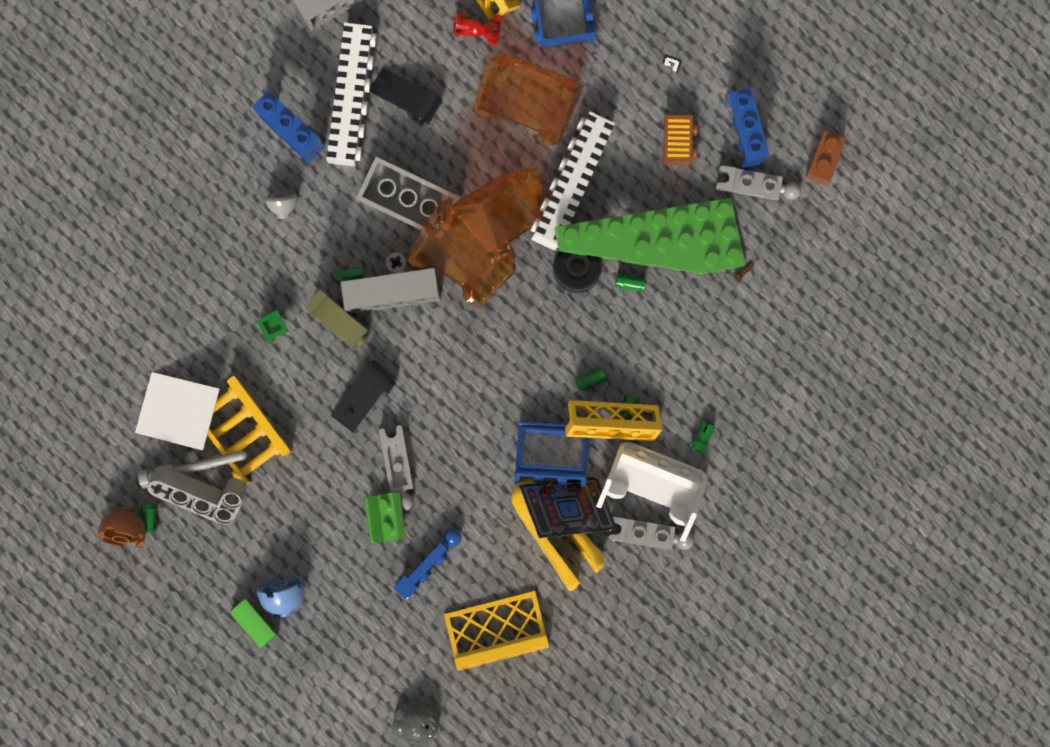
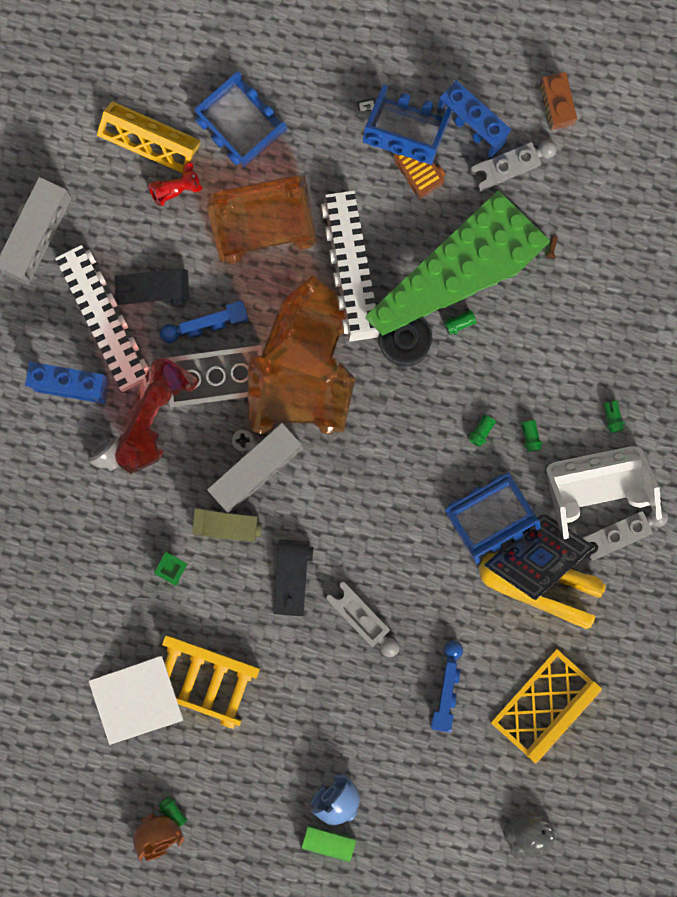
camera: 40 degrees left, 0 degrees up
(145, 475) = (149, 776): light grey piece -> none
(197, 496) = (204, 764): light grey beam -> none
(312, 208) = (136, 441): none -> clear red windscreen
(348, 274) = (207, 479): green pin -> none
(385, 517) = (383, 672): bright green bracket -> none
(456, 158) = (235, 314): none -> blue plate
(613, 428) = (530, 461): yellow fence -> none
(688, 99) = (405, 128): none -> blue window

